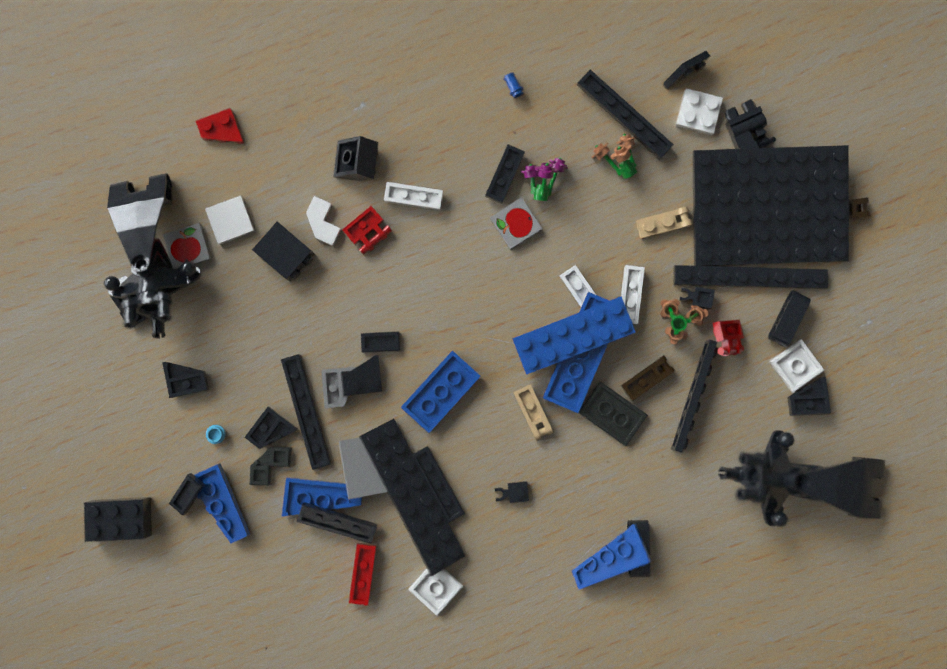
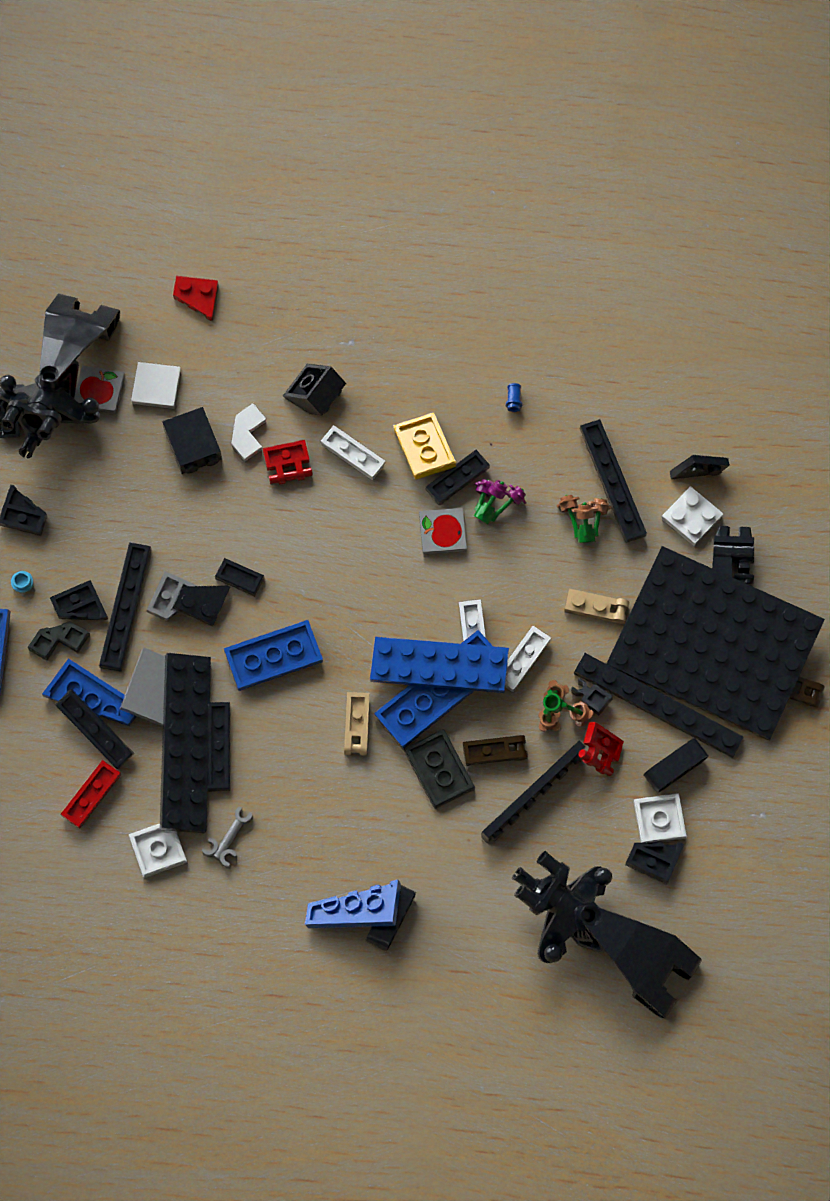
camera: 20 degrees right, 15 degrees down
(466, 162) = (424, 446): none -> yellow tile
(483, 563) = (220, 852): none -> light grey bar
(516, 492) = (294, 795): black plate -> none

